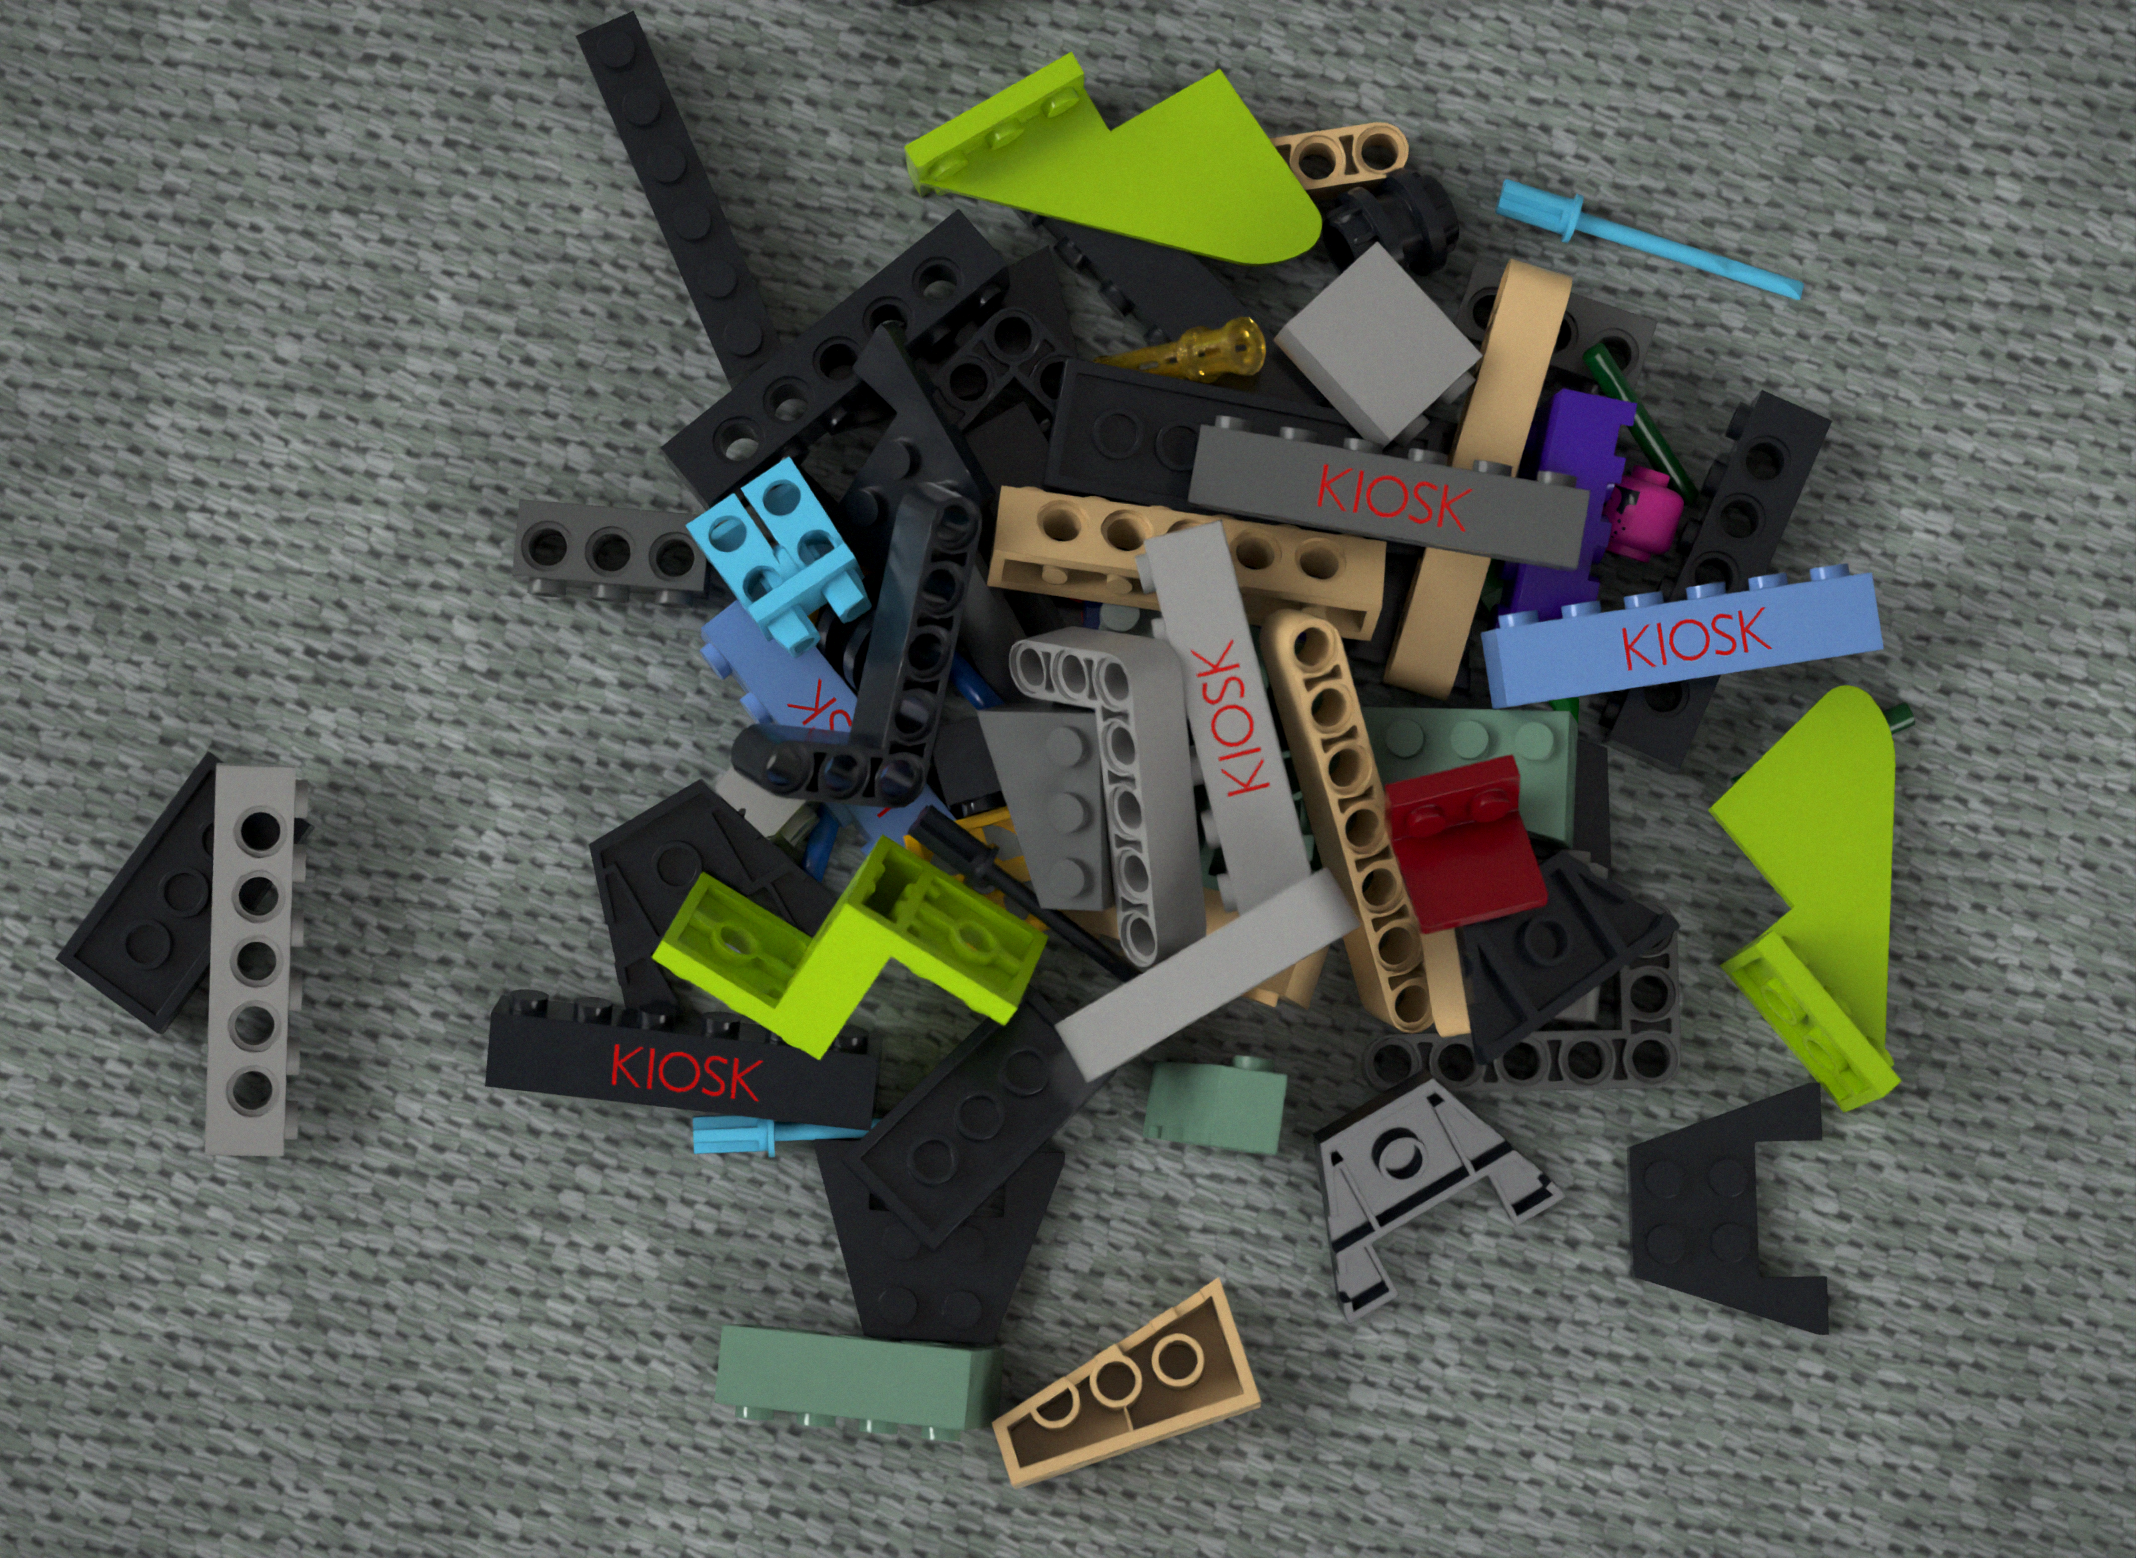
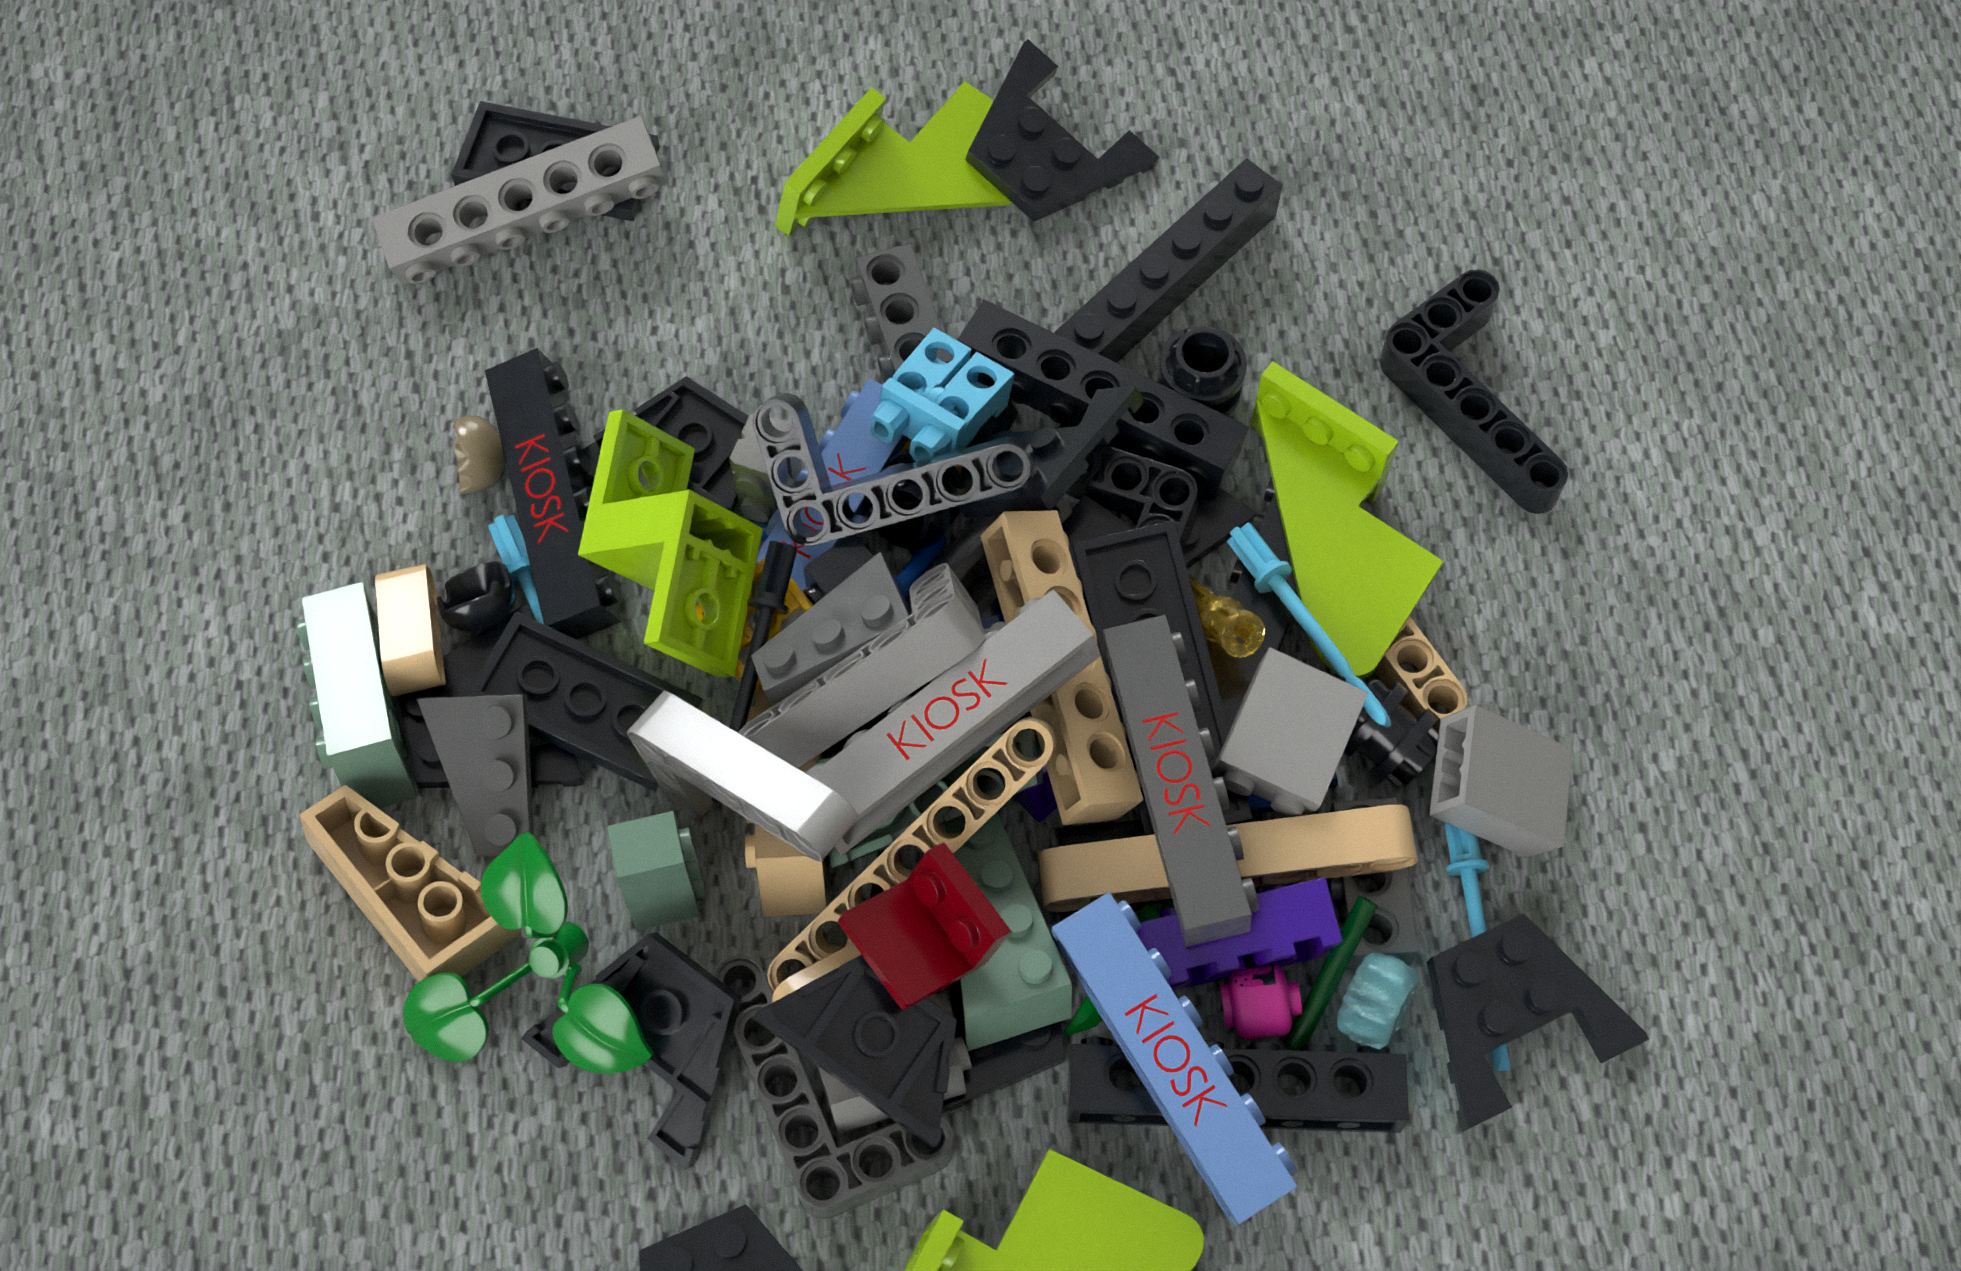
camera: 65 degrees right, 20 degrees down
(408, 379) = (876, 170): none -> lime piece
(441, 291) = (1035, 157): none -> black wing
(595, 1134) = (478, 454): none -> dark tan hair
(788, 1195) = (478, 597): none -> black hair
(802, 1288) = (409, 630): none -> beam
(842, 193) = (1204, 367): none -> black piece
(1020, 1255) = (486, 764): none -> dark grey wing
(1154, 273) = (1271, 575): none -> medium azure piece
(1234, 1256) = (598, 1023): none -> green plant
(1505, 137) = (1501, 781): none -> light grey brick
(1693, 391) = (1377, 1000): none -> clear light blue gear
(1726, 252) = (1504, 989): none -> black wing

